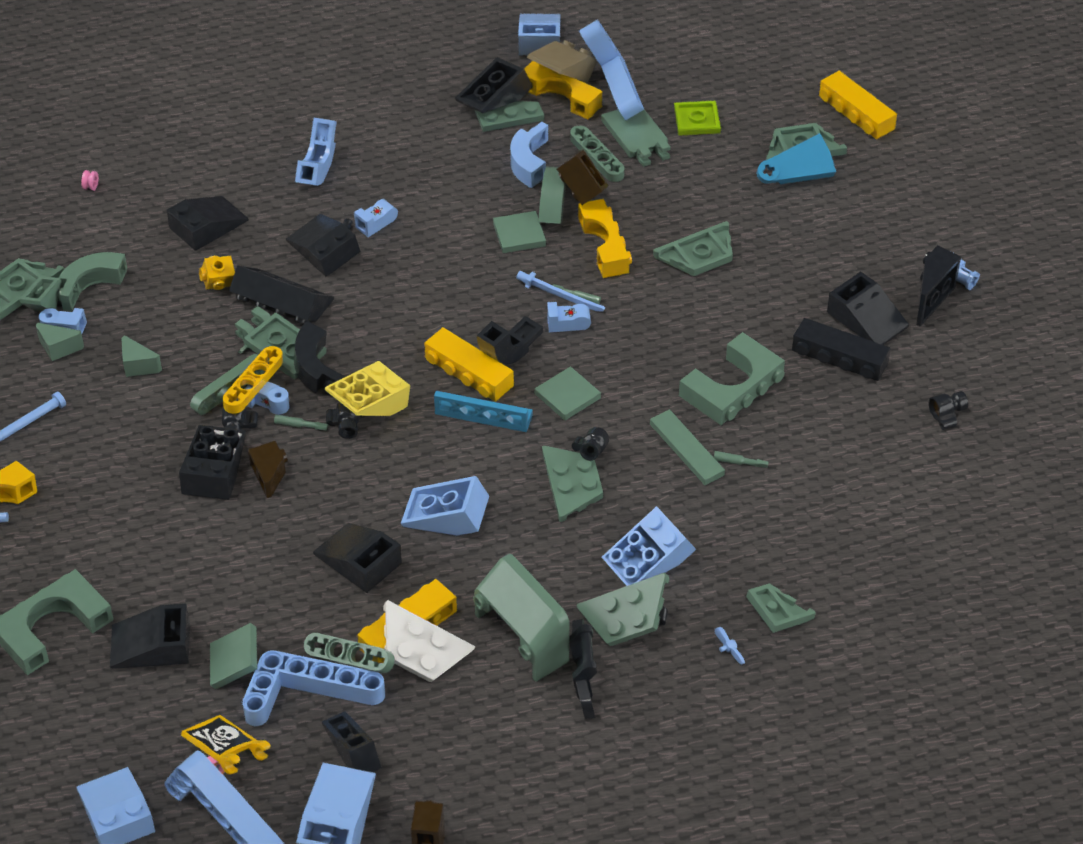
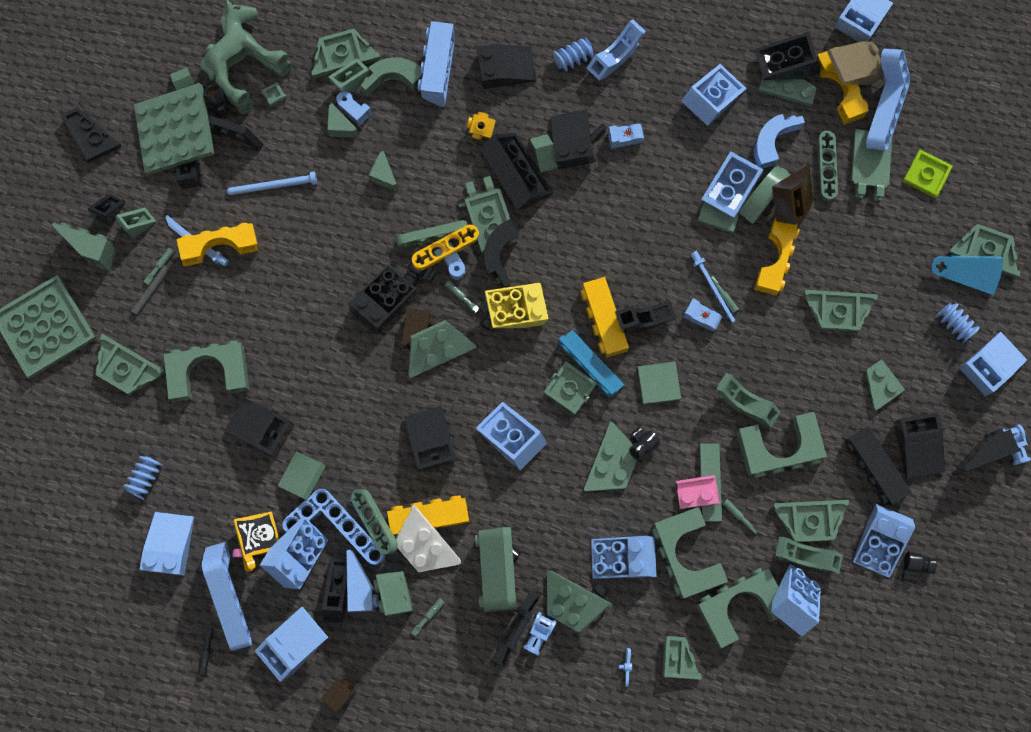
camera: 30 degrees right, 30 degrees up
(38, 754) = (142, 476): none -> light blue piece
(133, 239) = (437, 62): none -> light blue slope
(273, 179) = (573, 54): none -> light blue piece
(278, 729) = (294, 554): none -> light blue slope
(302, 268) = (544, 153): none -> sand green slope
(304, 471) = (436, 347): none -> sand green wing
(377, 715) = (359, 588): none -> light blue slope
(419, 705) = (394, 593): none -> sand green slope
(439, 150) = (713, 94): none -> light blue slope
(475, 715) = (428, 616): none -> sand green piece
(477, 439) = (570, 388): none -> sand green plate
(515, 198) = (732, 184): none -> light blue slope
(611, 663) = (539, 631): none -> light blue connector
(668, 362) = (750, 405): none -> sand green arch
(680, 457) = (697, 492): none -> bright pink plate
(729, 535) = (686, 581): none -> sand green arch
(790, 288) = (882, 384): none -> sand green wing
(806, 501) = (714, 608): none -> sand green arch
(812, 424) = (812, 519): none -> sand green wing
(818, 206) = (957, 322): none -> light blue piece
(835, 454) = (808, 556): none -> sand green arch
(856, 484) = (797, 601): none -> light blue slope
(879, 224) = (993, 364): none -> light blue slope
(897, 403) = (883, 540): none -> light blue slope

